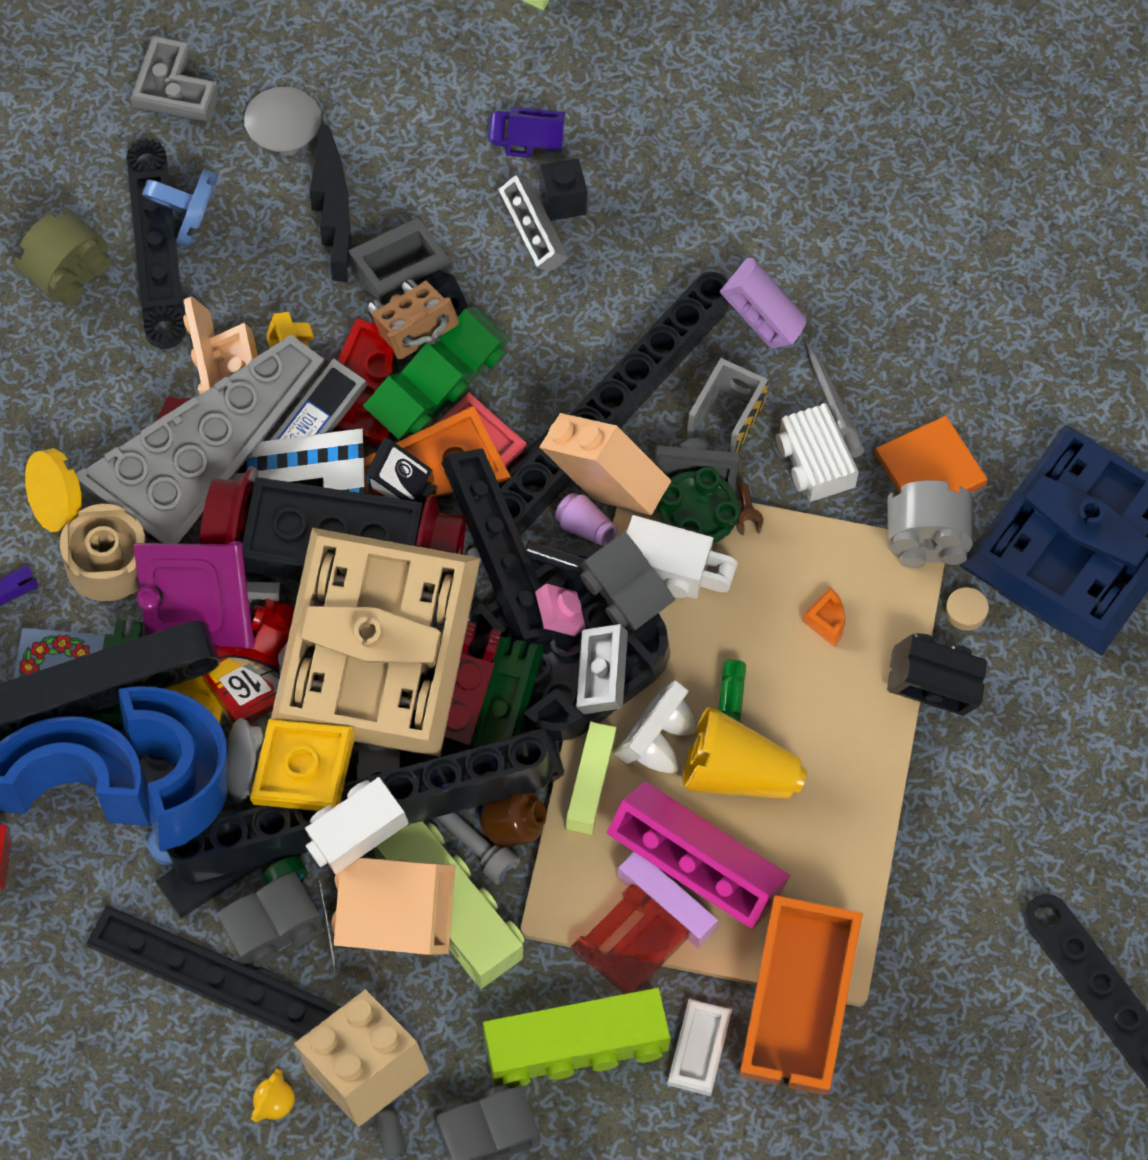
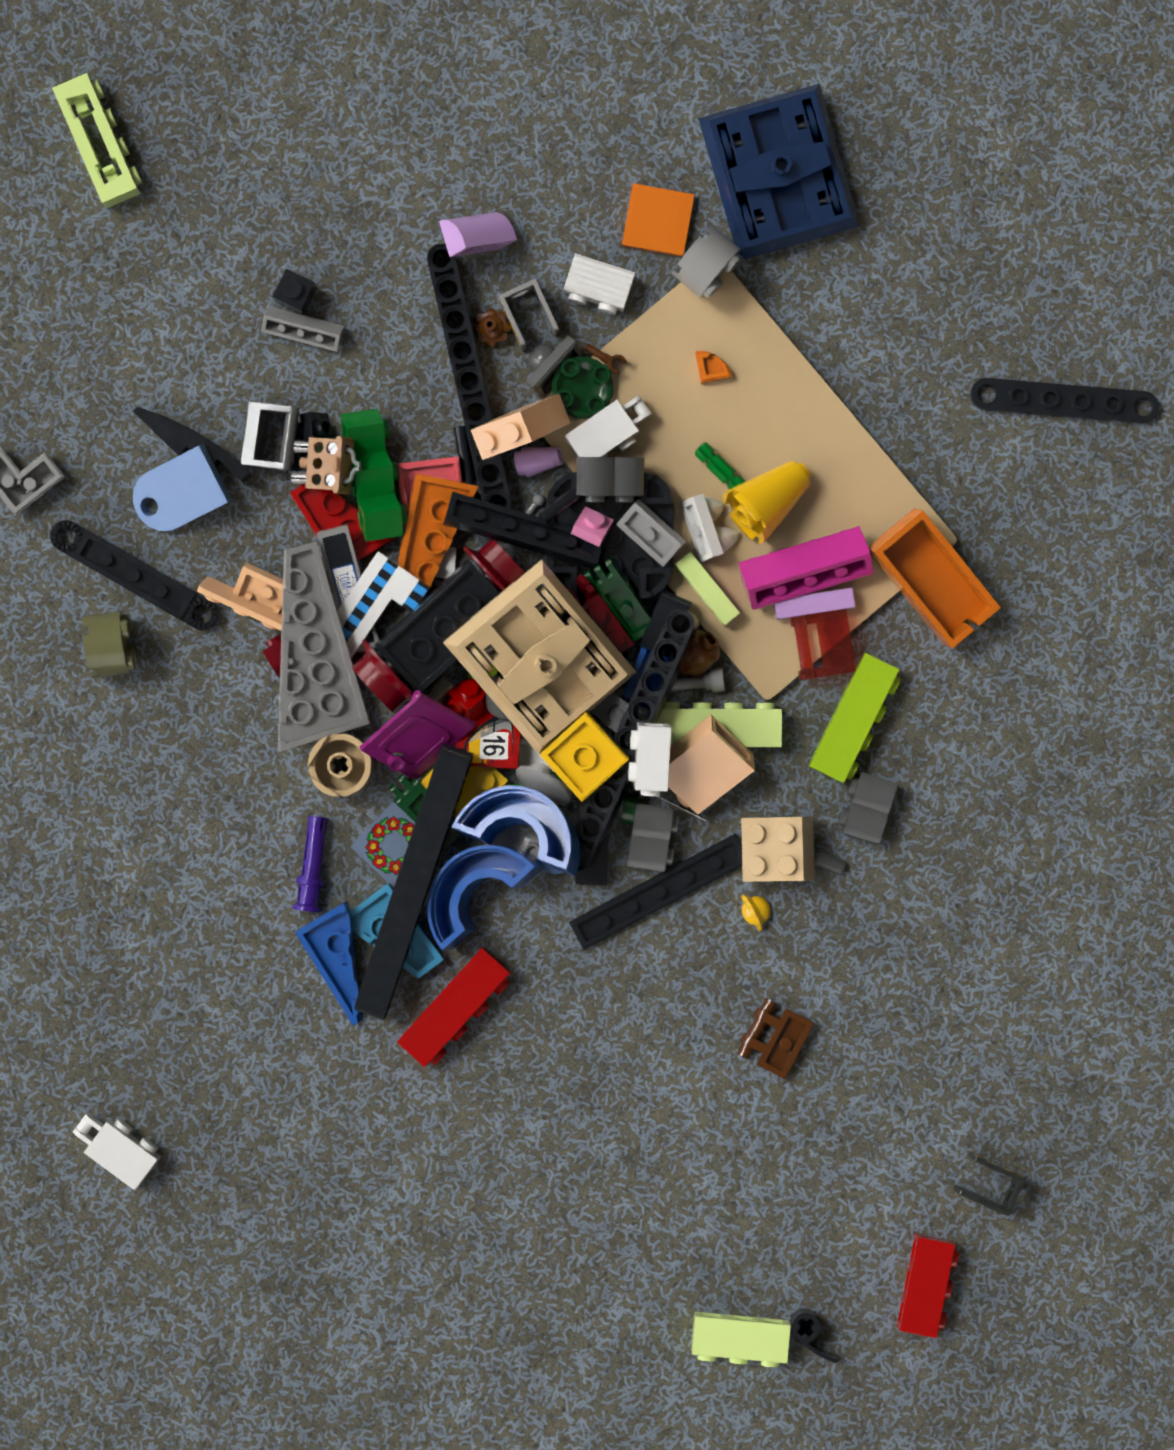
camera: 45 degrees left, 25 degrees up
(52, 489) = (274, 768): yellow tile -> none
(191, 205) = (131, 537): medium blue tile -> none
(280, 220) = (182, 488): none -> medium blue tile
(282, 119) = (100, 427): light grey dish -> none
(282, 327) = (270, 546): yellow tile -> none
(399, 474) = (438, 558): slope -> none
(528, 129) = (230, 278): dark purple piece -> none
(683, 387) = (491, 327): none -> reddish brown plant
(699, 1047) = (909, 652): white tile -> none
(836, 407) = (595, 252): light grey bar -> none
(937, 674) = (799, 336): black brick -> none
(966, 608) = (765, 278): tan tile -> none

